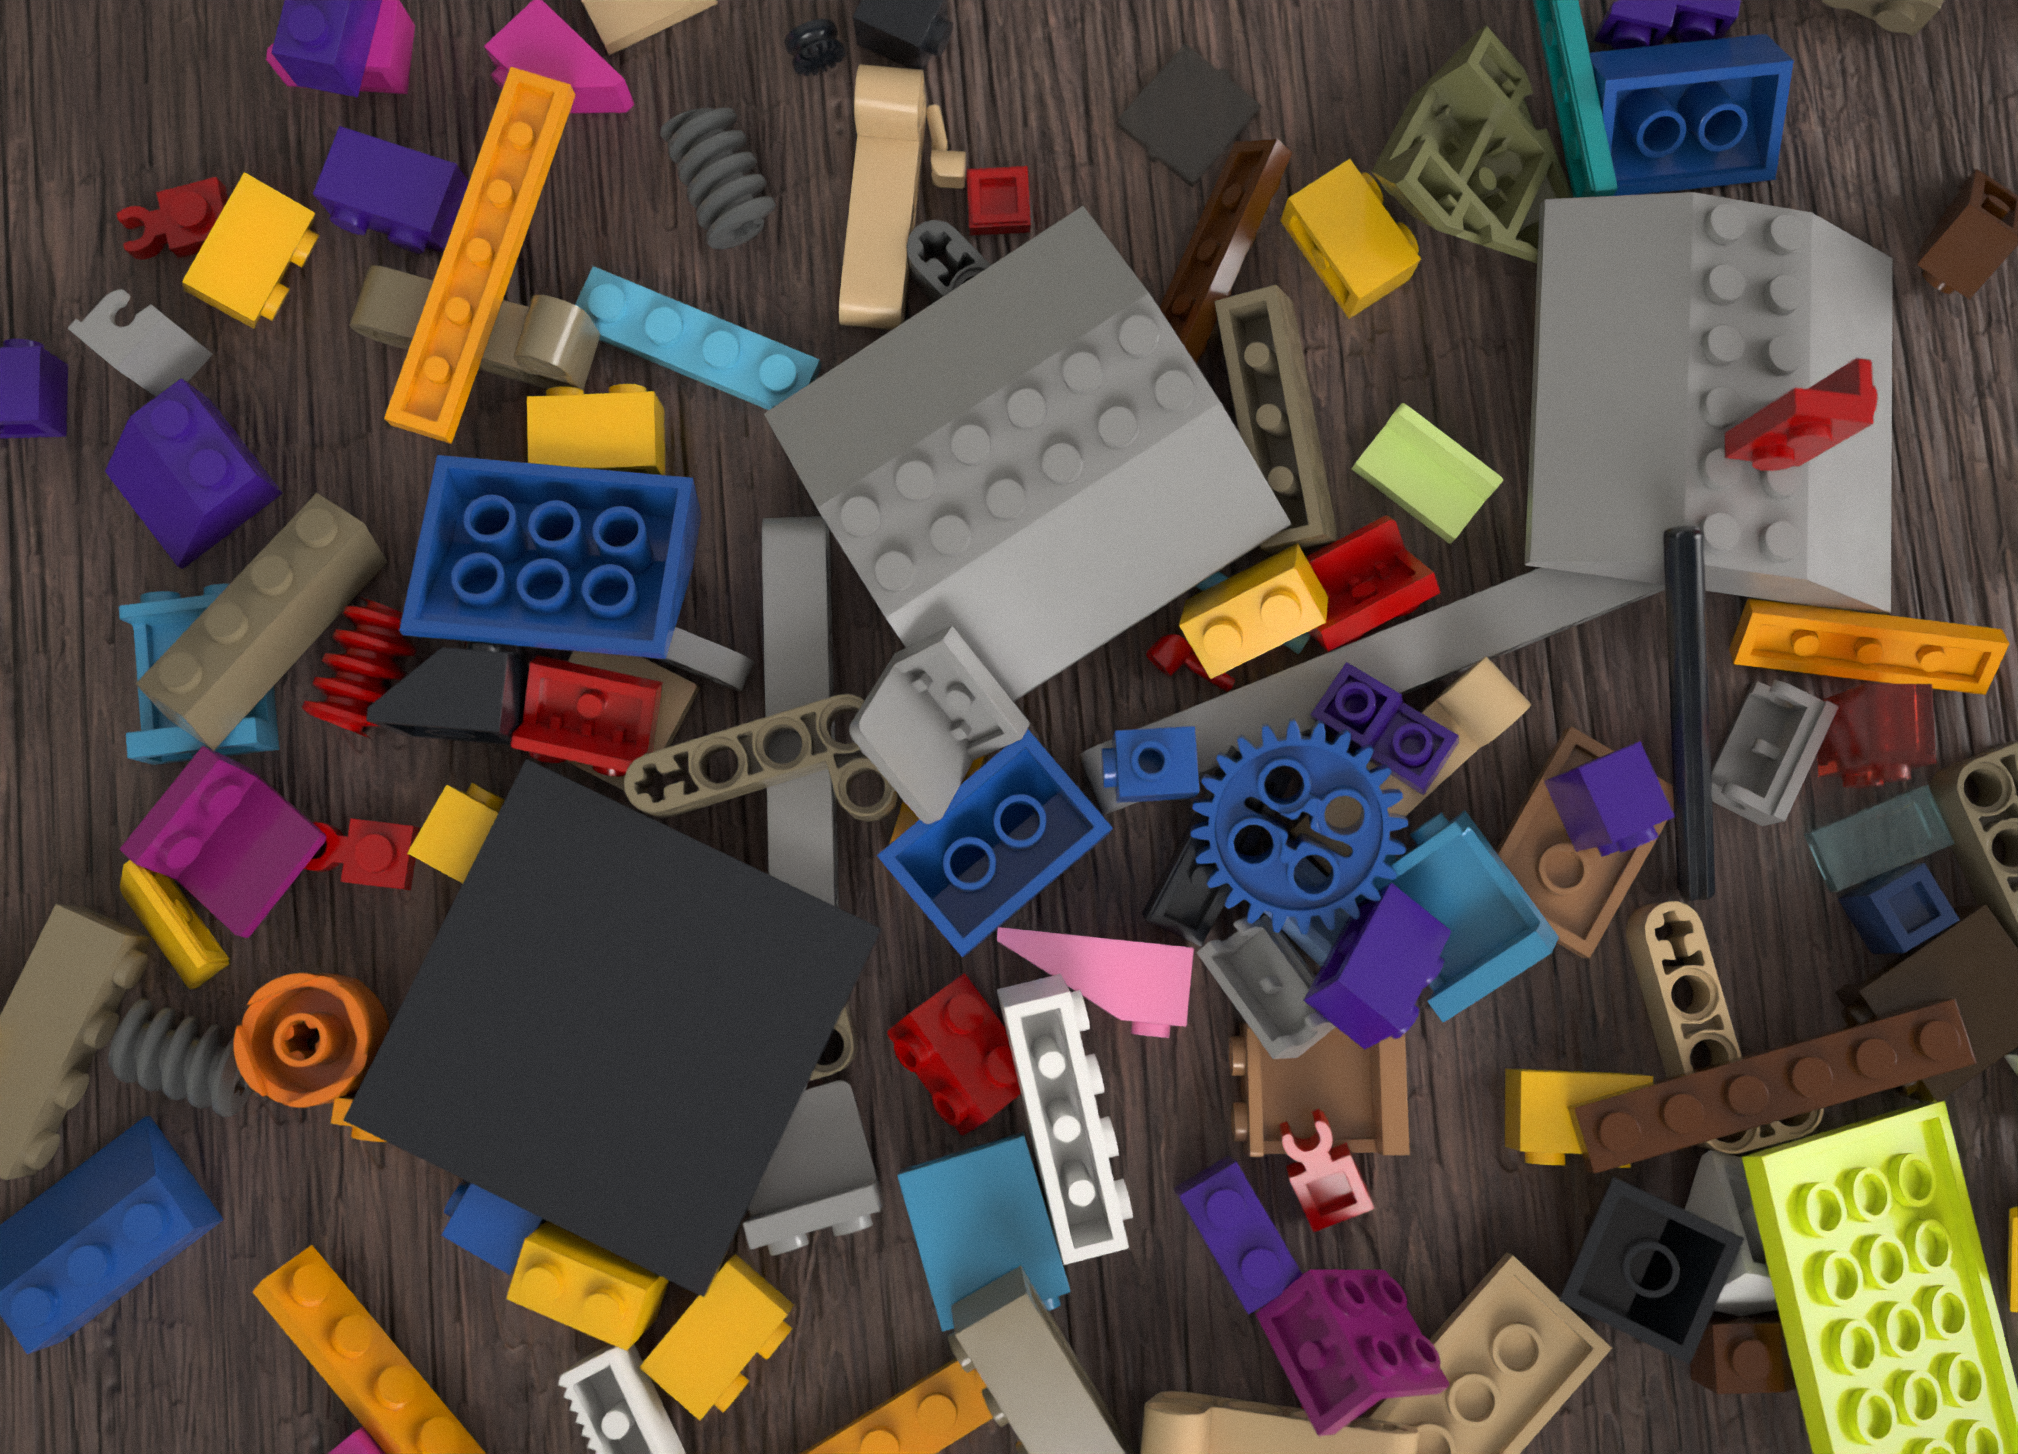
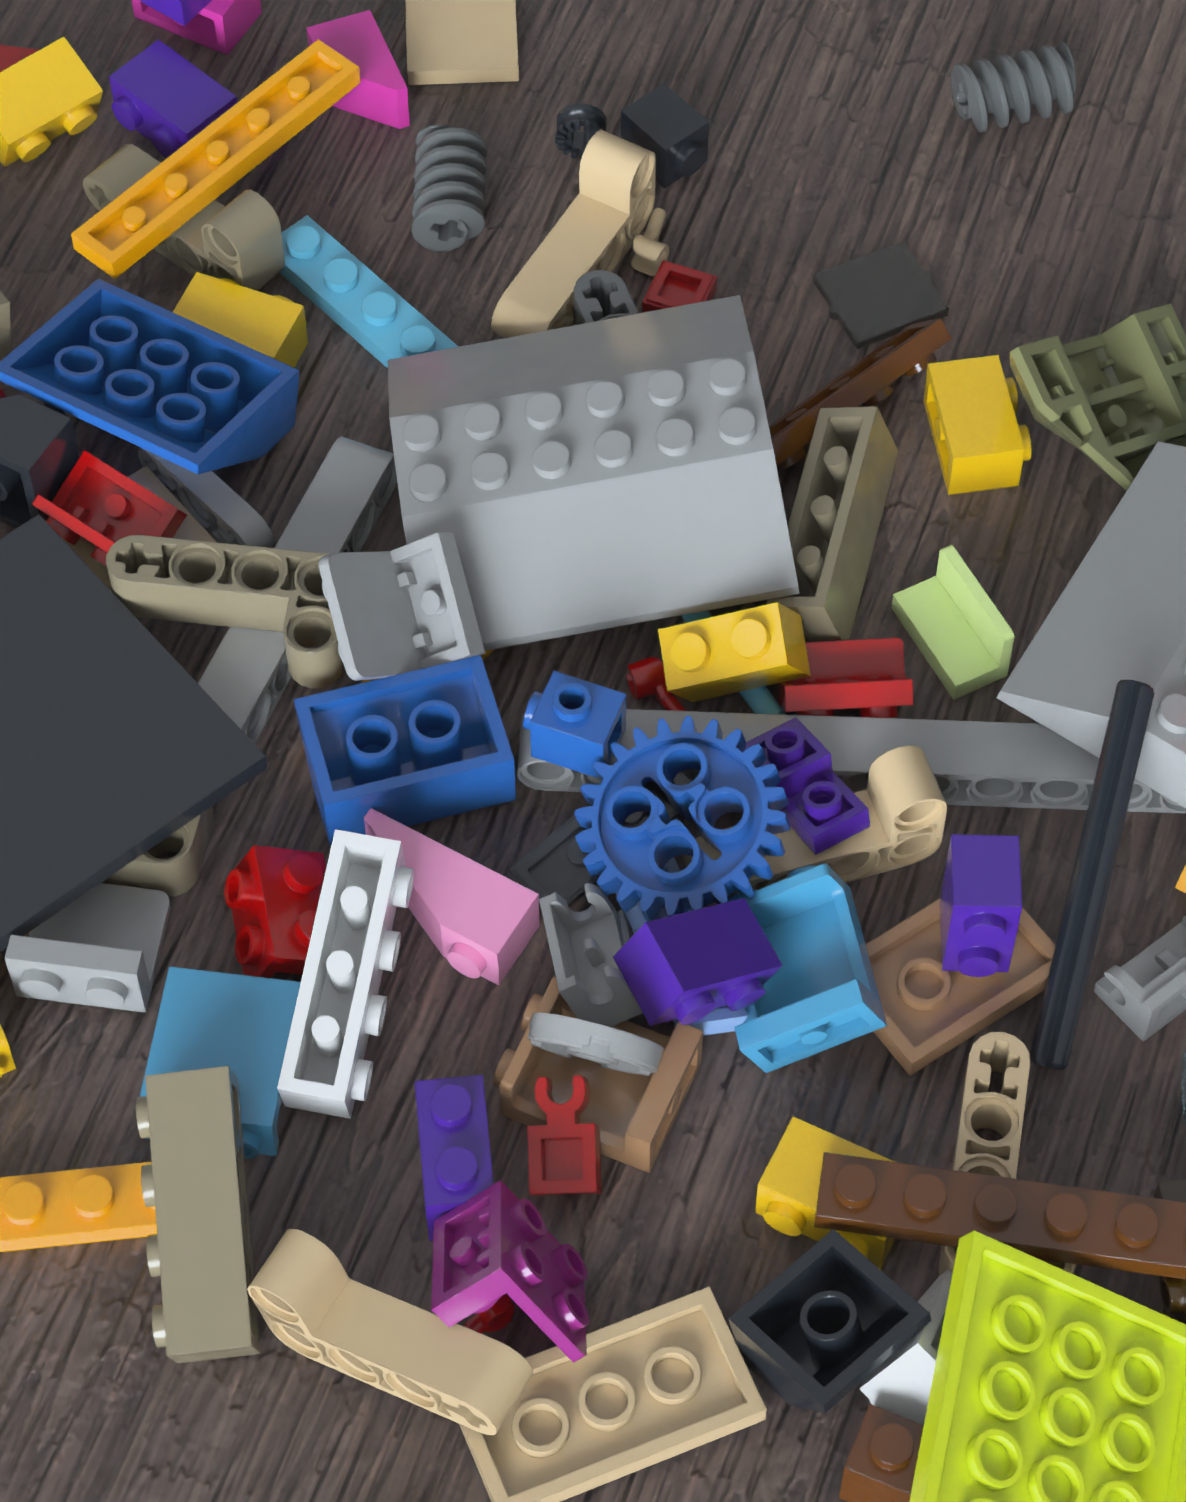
camera: 25 degrees right, 25 degrees down
(1323, 1089) = (595, 1042): none -> light grey tile

